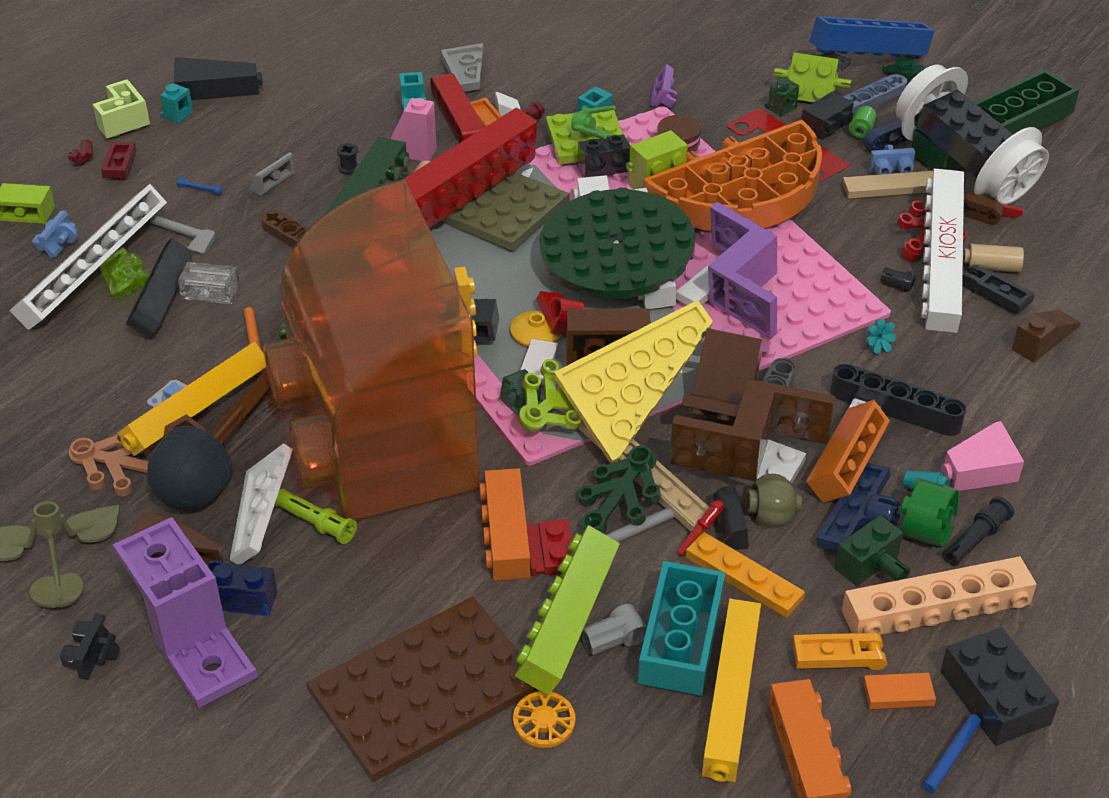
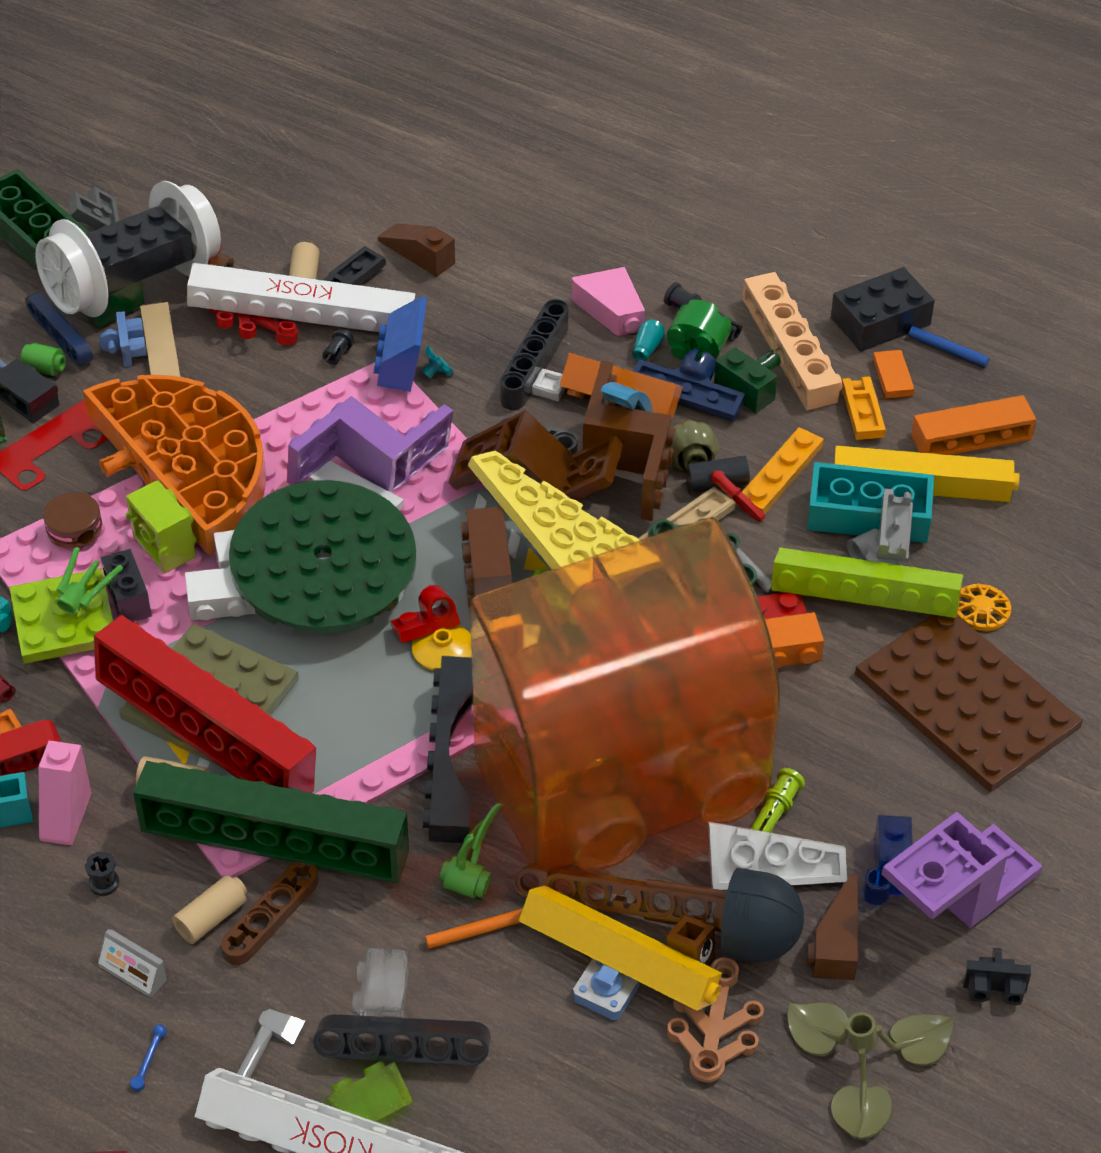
camera: 95 degrees left, 5 degrees up
(302, 203) = (210, 908): none -> tan brick
(624, 618) = (895, 526): none -> light grey hinge
(781, 400) = (626, 397): none -> dark azure slope
(871, 301) = (400, 346): none -> blue slope
(1059, 147) = (95, 211): none -> dark grey plate

